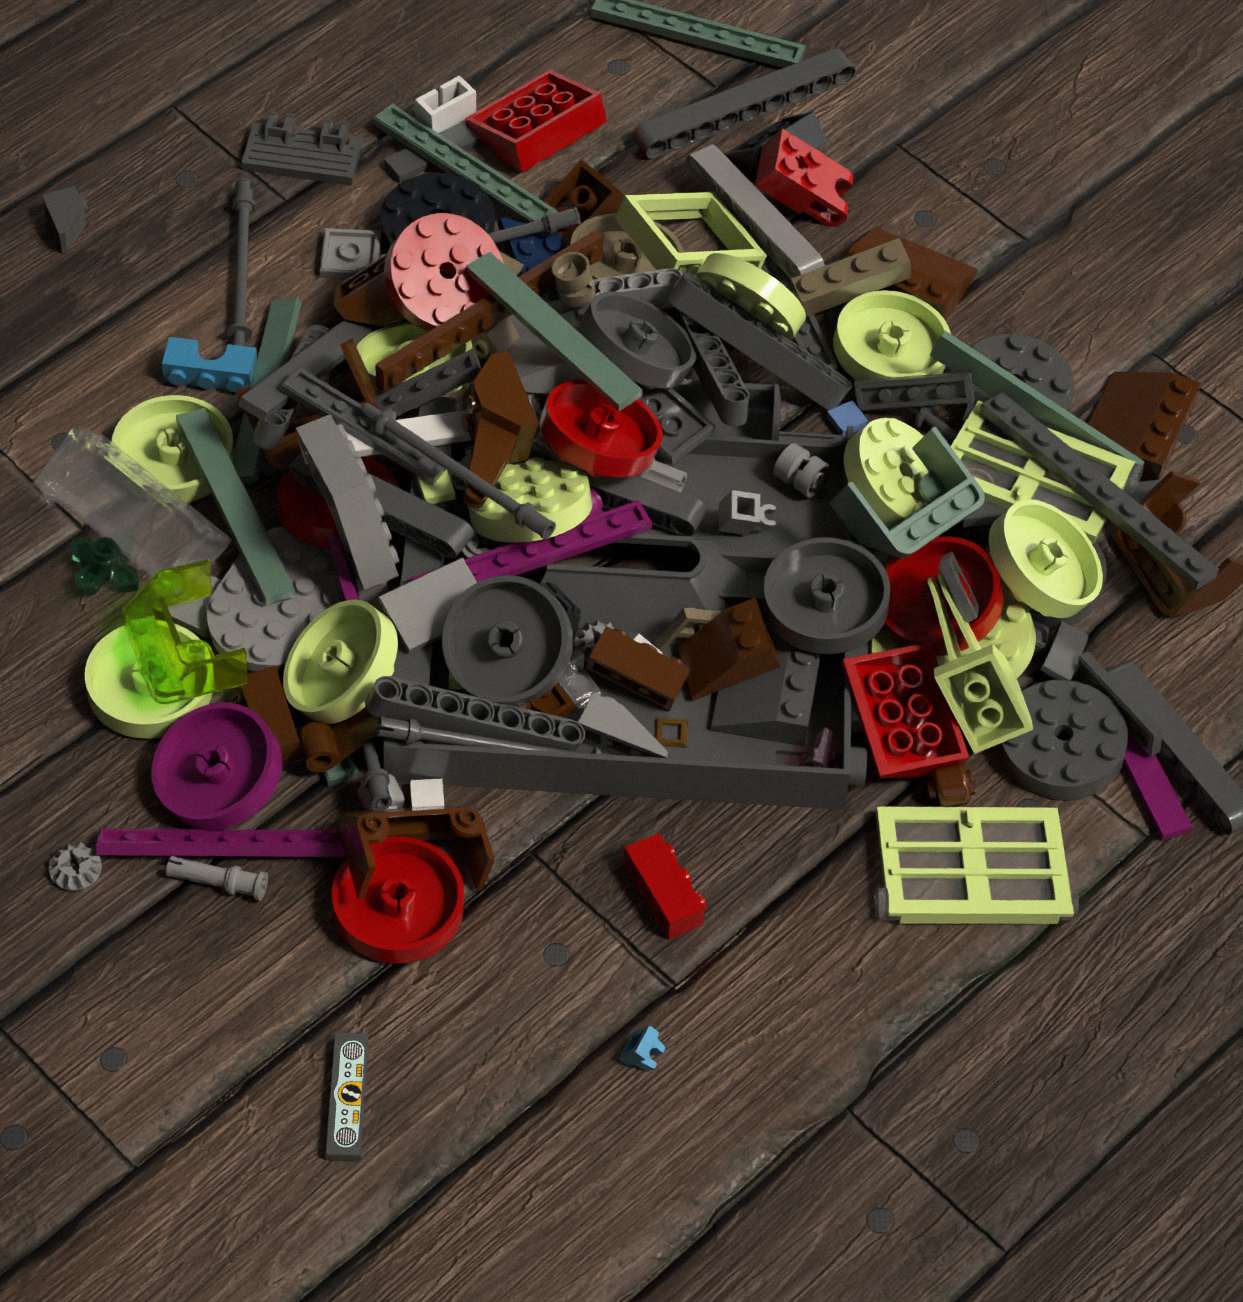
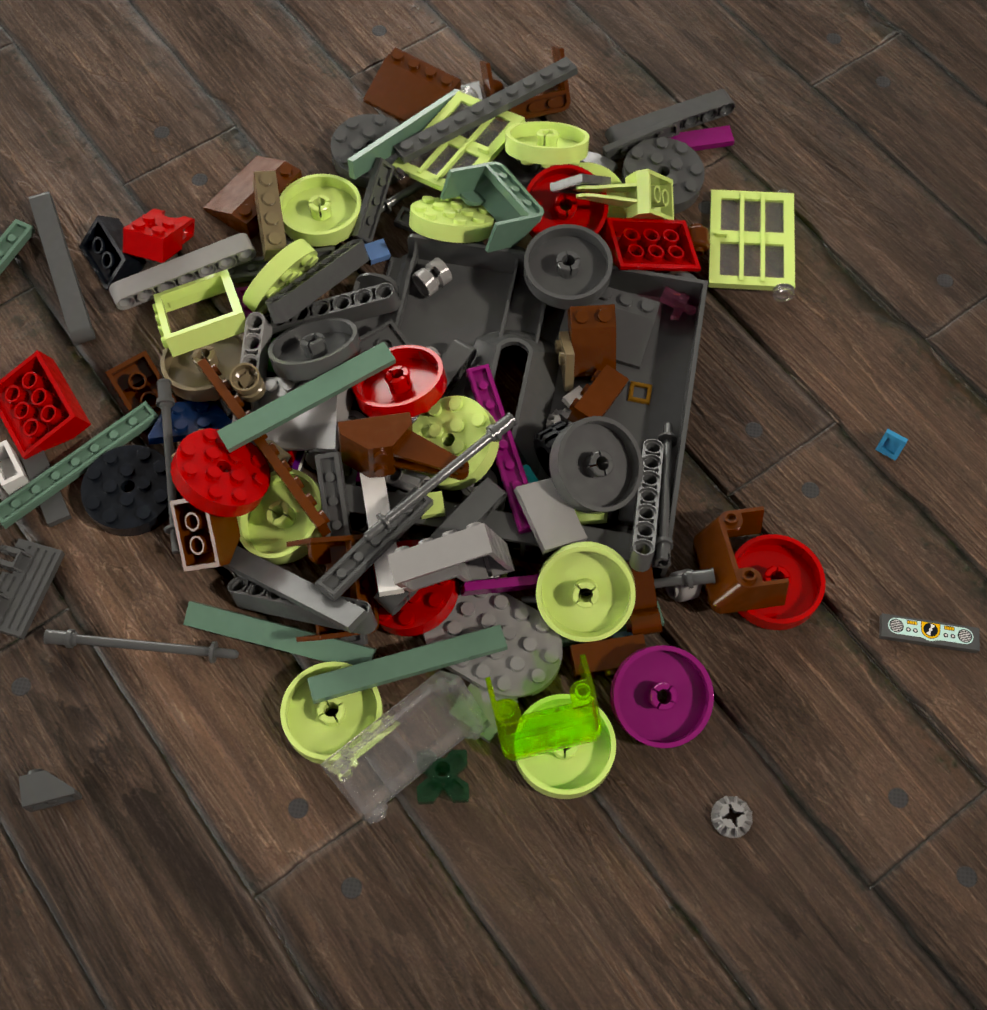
camera: 80 degrees left, 10 degrees up
(185, 366) = (241, 698): dark azure arch -> none
(220, 842) = (717, 730): magenta tile -> none
(232, 879) = (751, 697): light grey pin -> none
(347, 250) = (143, 560): light grey tile -> none
(427, 793) = (681, 556): white tile -> none
(617, 730) = (646, 418): light grey slope -> none
(664, 885) = (766, 413): red brick -> none
(742, 513) = (469, 317): light grey brick -> none

